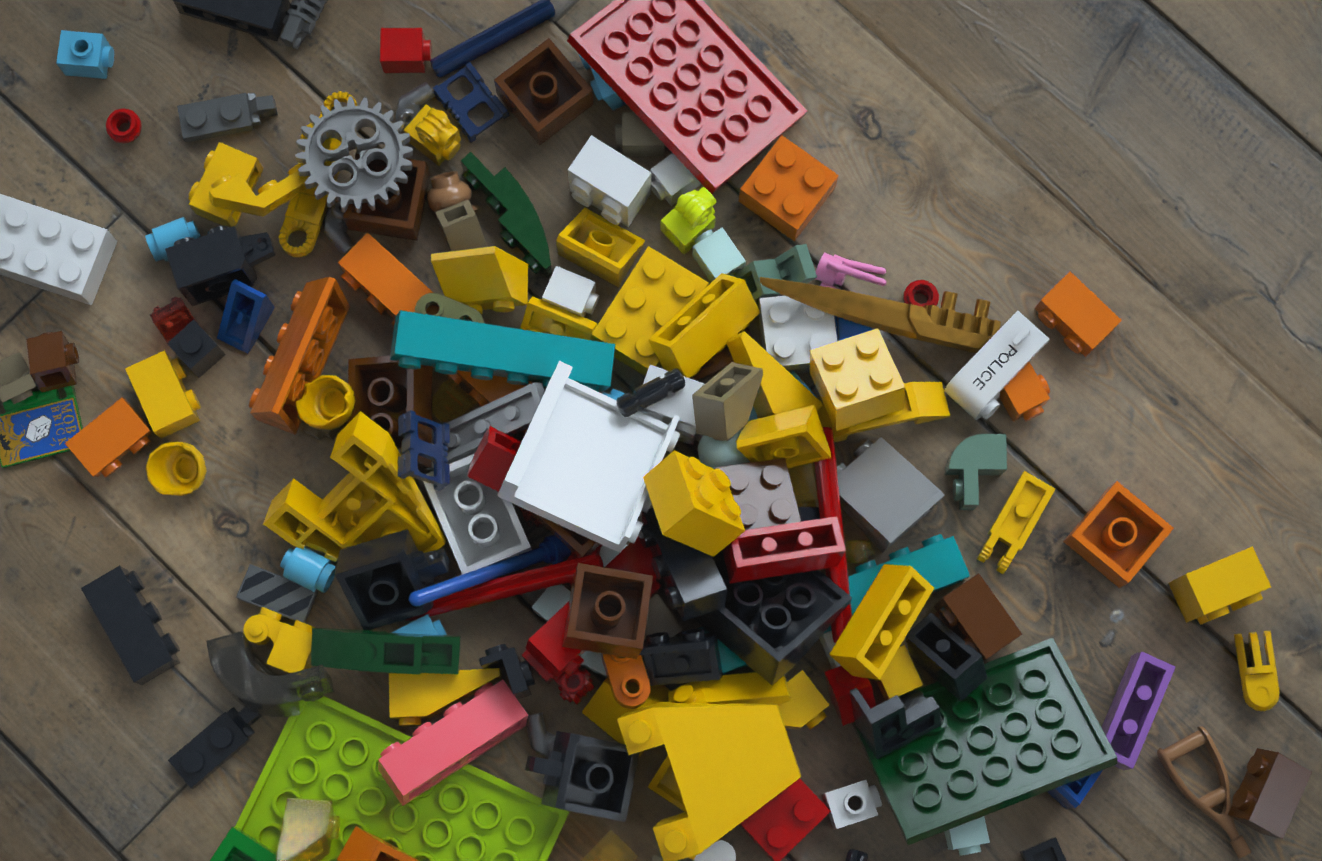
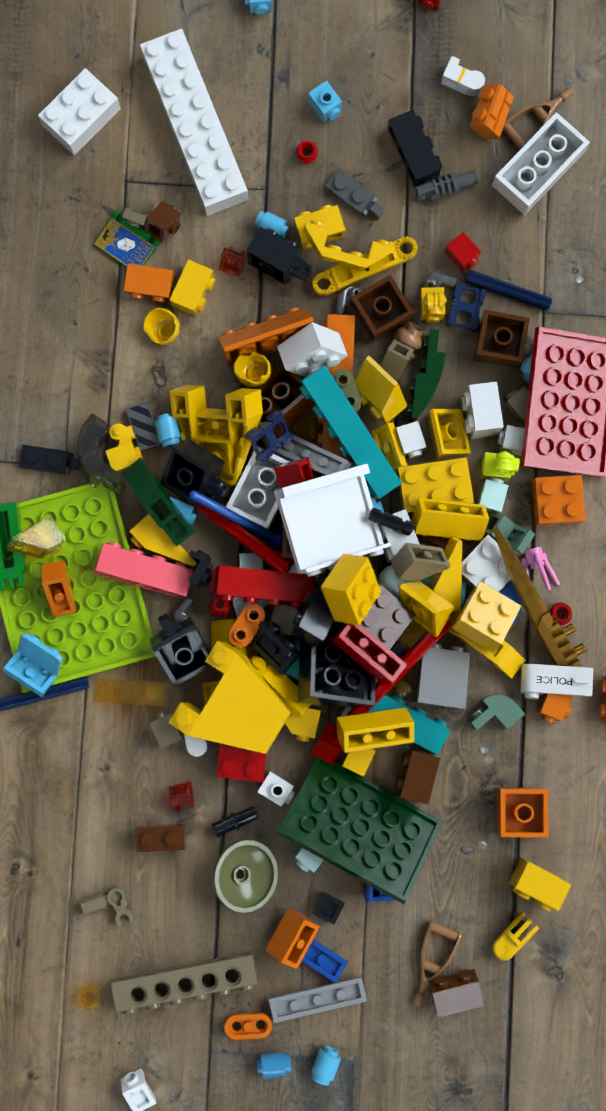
camera: 50 degrees right, 5 degrees up
(132, 624) = (71, 371): black brick -> none
(196, 348) = (227, 284): black brick -> none
(244, 316) = (262, 293): blue slope -> none
(343, 125) = (396, 257): light grey gear -> none
(365, 314) = (311, 349): none -> white brick
(607, 611) = (264, 592): reddish brown brick -> none
(895, 720) = (333, 777): black panel -> none
(946, 656) = (386, 776): black brick -> none
(1017, 518) = (488, 755): yellow hinge -> none
(1136, 706) = (441, 891): medium lavender brick -> none

